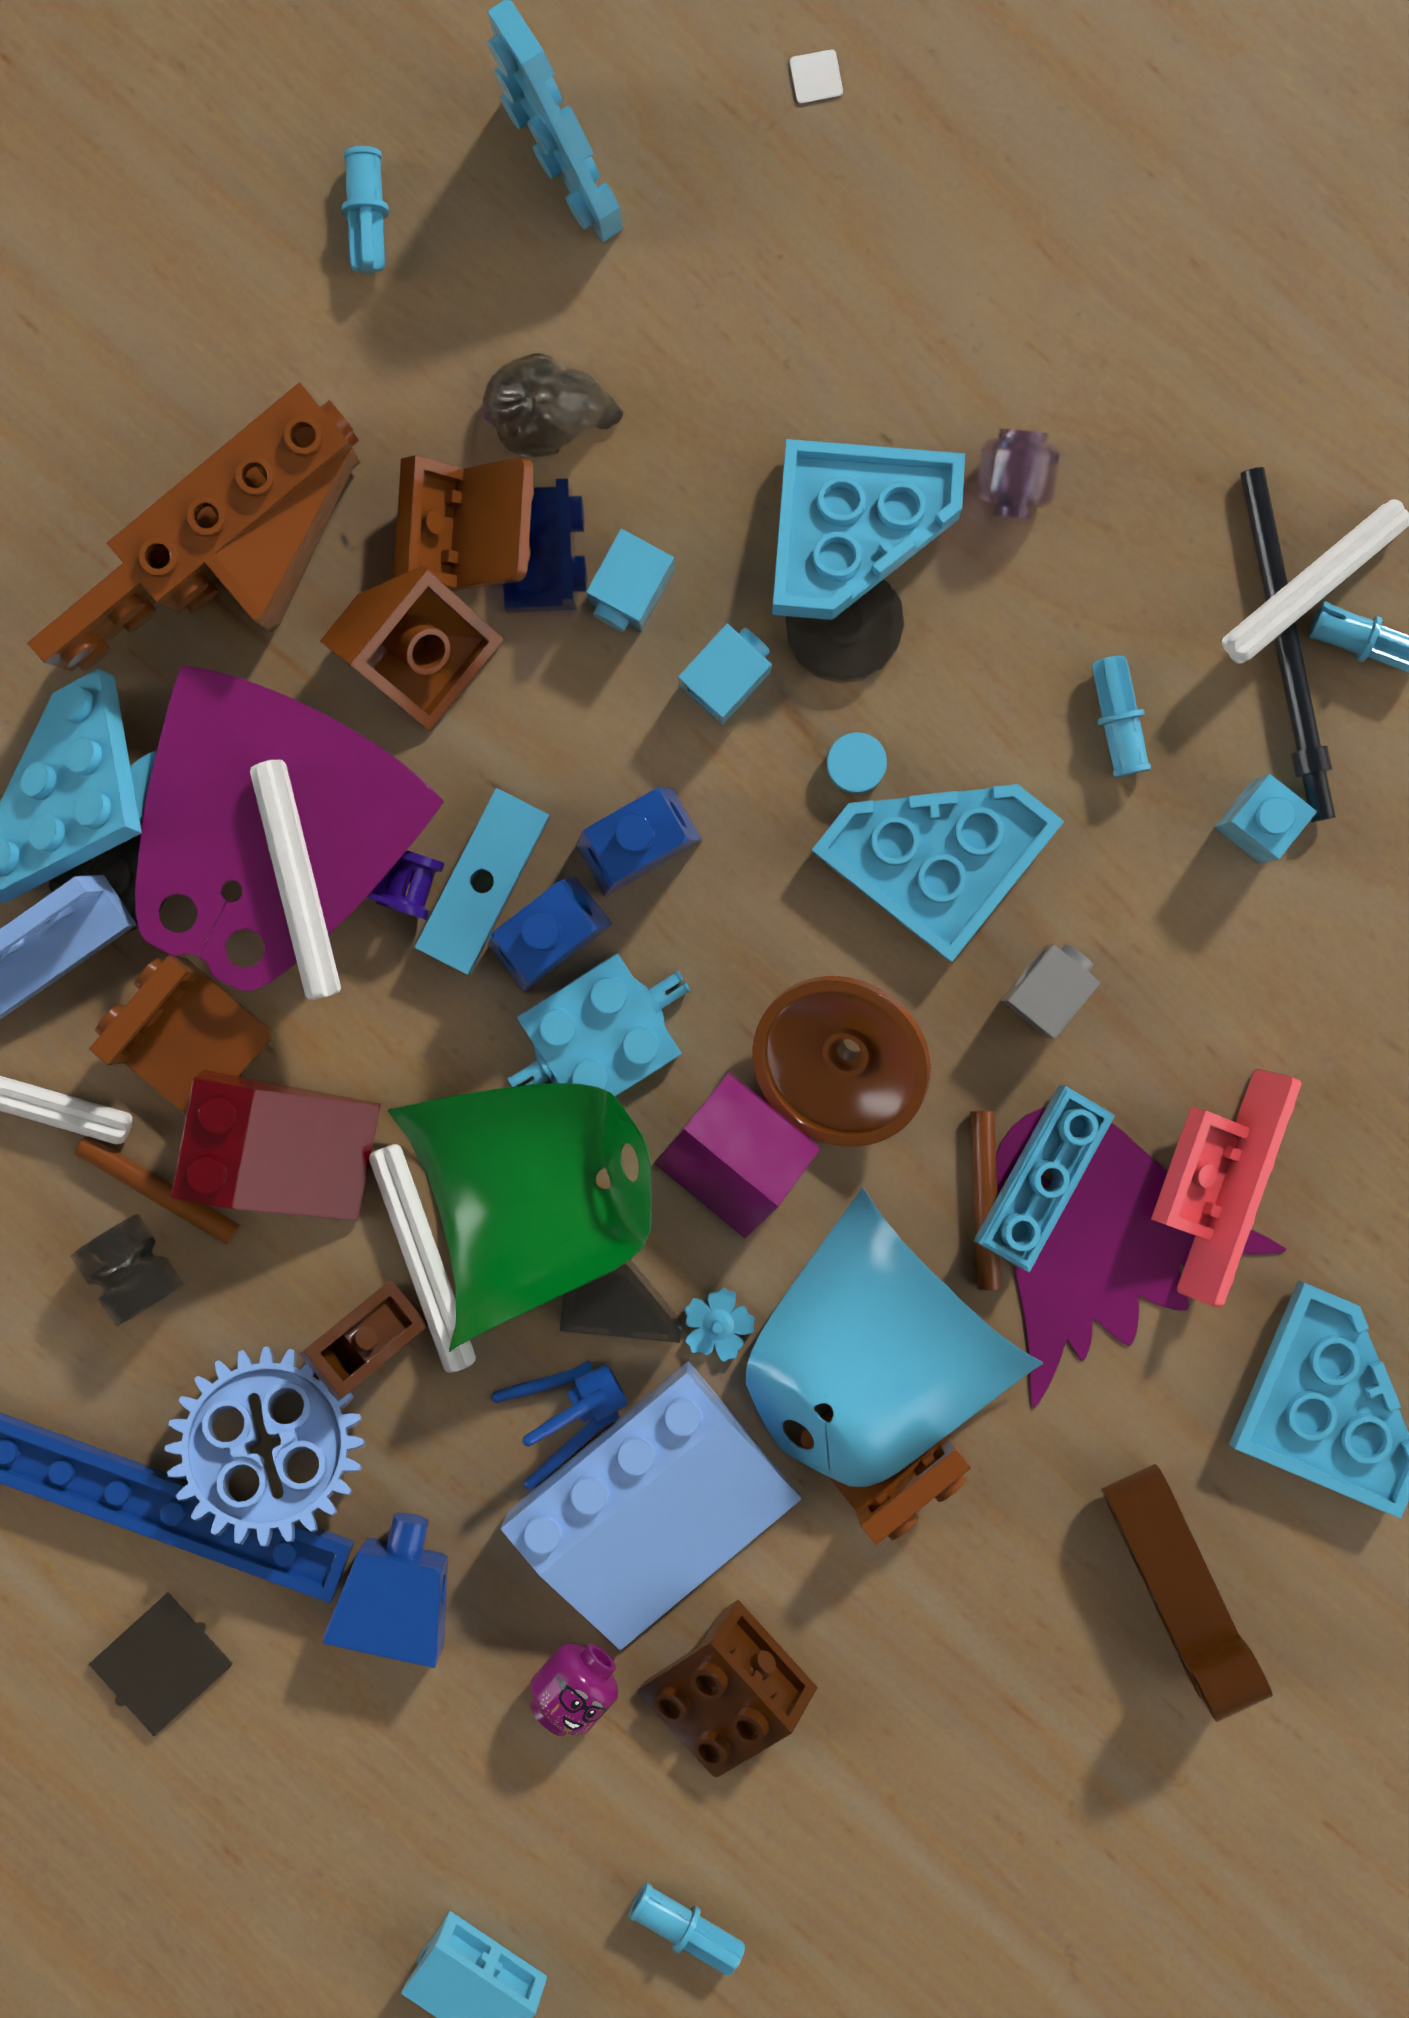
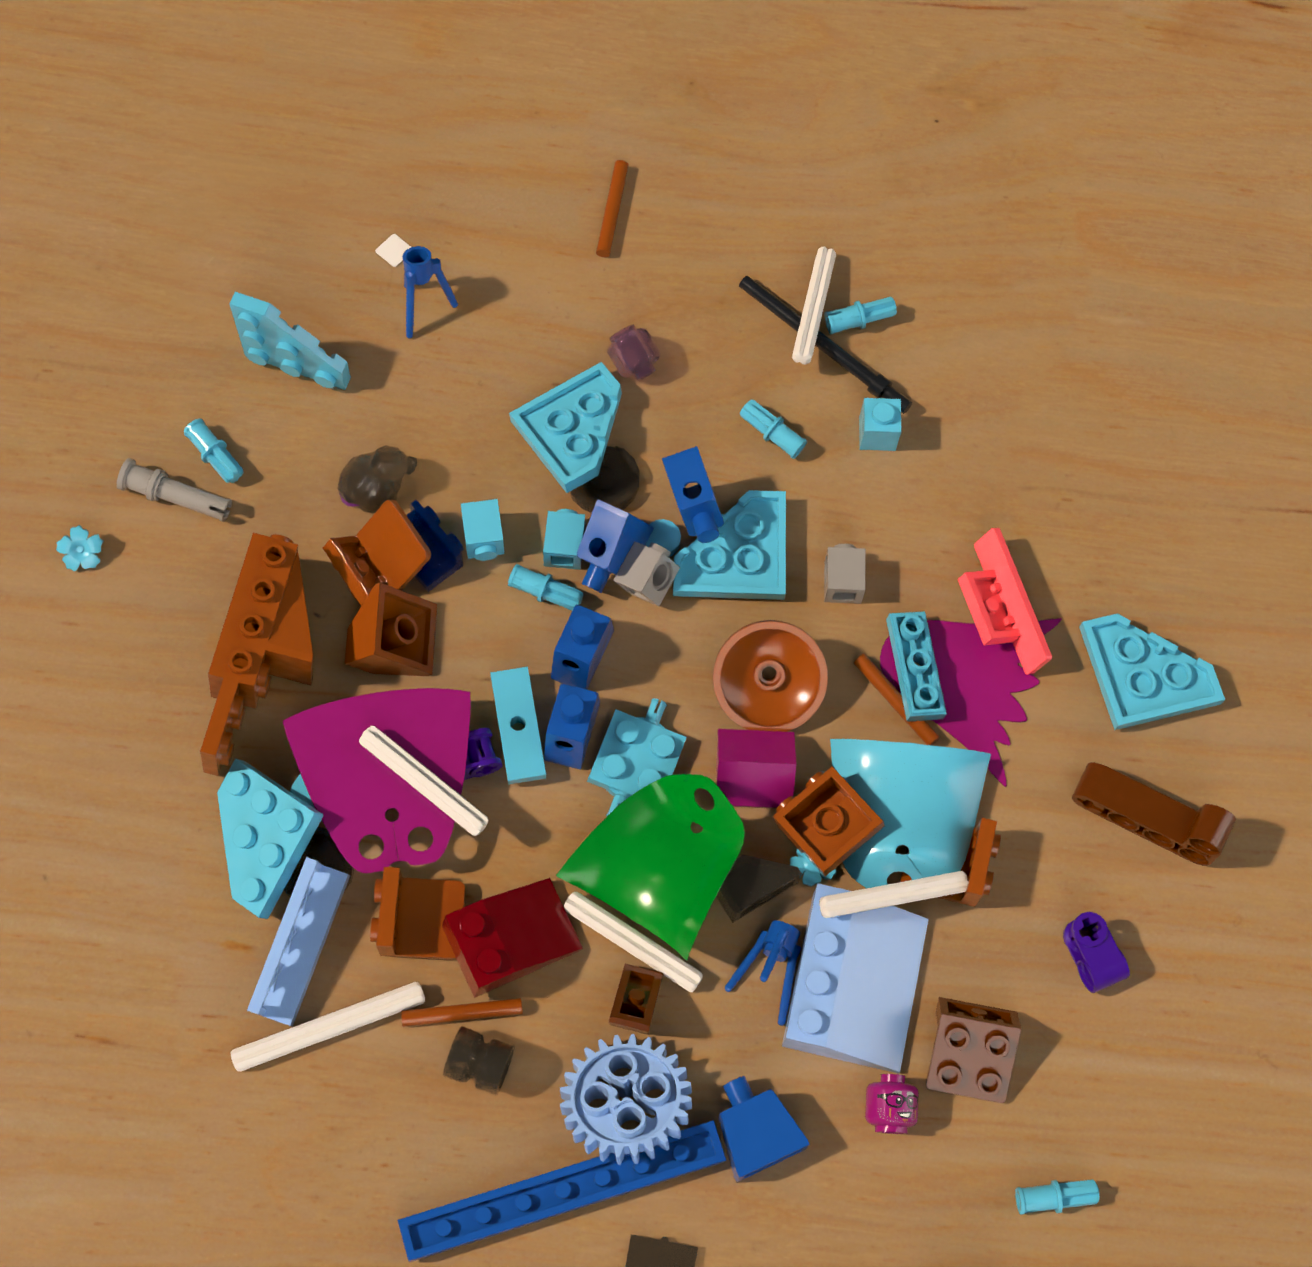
camera: 40 degrees left, 20 degrees down
(99, 229) = (80, 549): none -> medium azure plant
(259, 208) = (158, 485): none -> light grey pin
(654, 721) = (544, 587): none -> medium azure axle
(764, 1301) = (827, 820): none -> dark orange plate
(766, 1461) = (893, 894): none -> white axle
(776, 730) = (608, 541): none -> blue torso
(794, 802) = (647, 572): none -> light grey brick
(807, 141) = (418, 271): none -> blue plant
(932, 746) = (696, 503): none -> blue torso
(966, 1703) = (1097, 956): none -> dark purple piece
(1158, 228) = (612, 208): none -> dark orange bar

